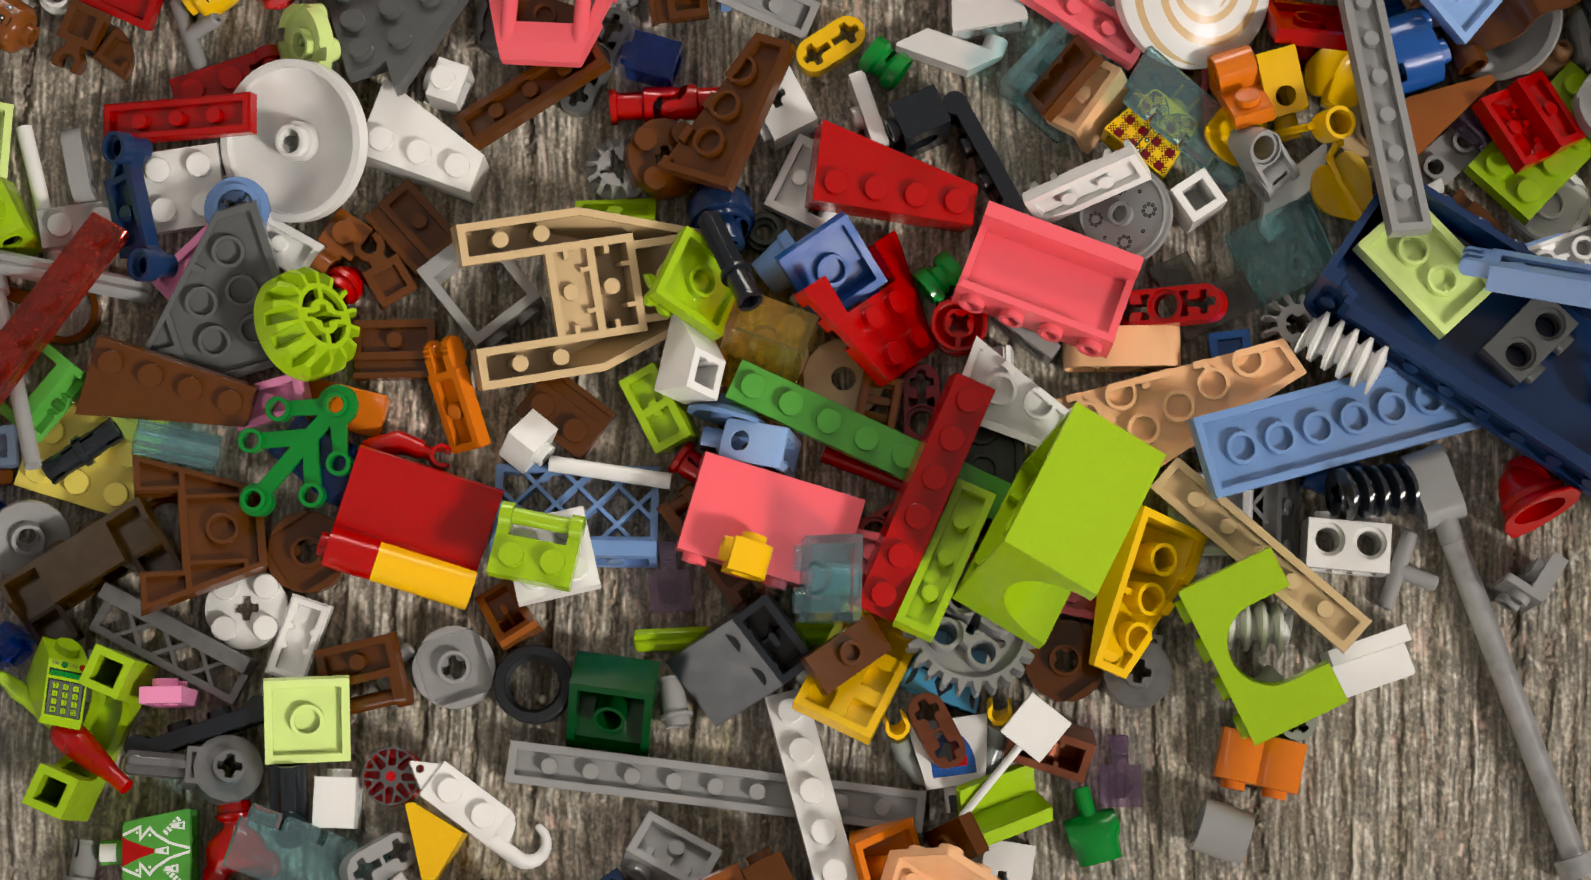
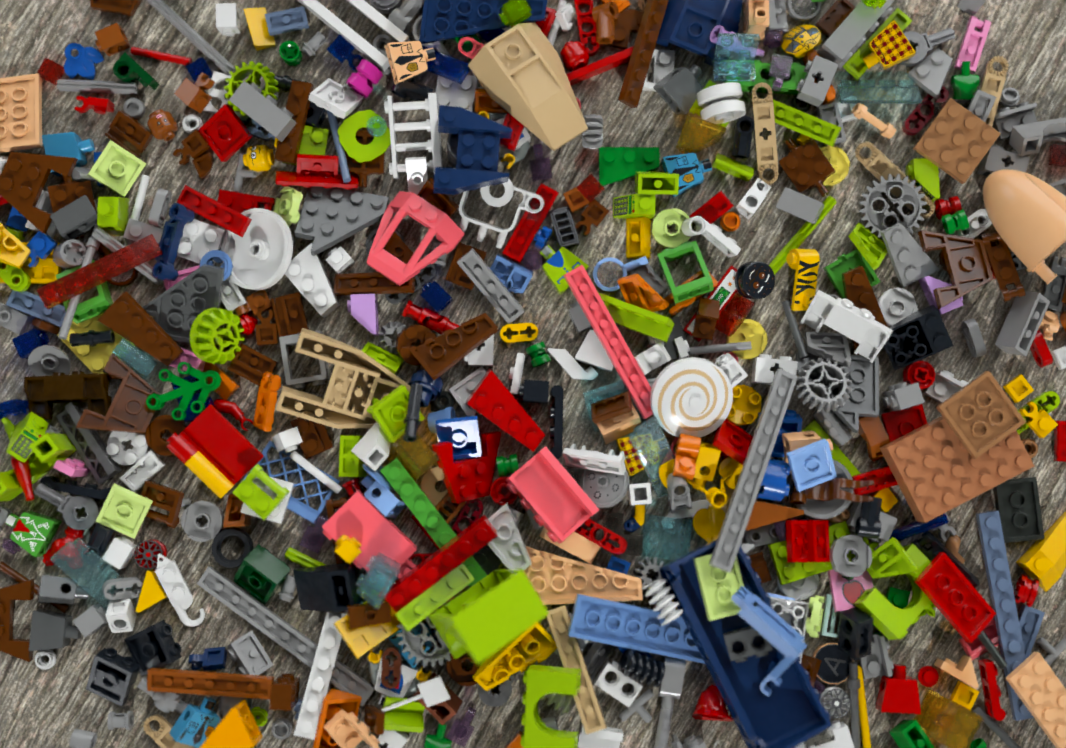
camera: 25 degrees right, 5 degrees up
(542, 150) = (365, 310): none -> lavender slope
(1216, 252) = (637, 520): none -> arm

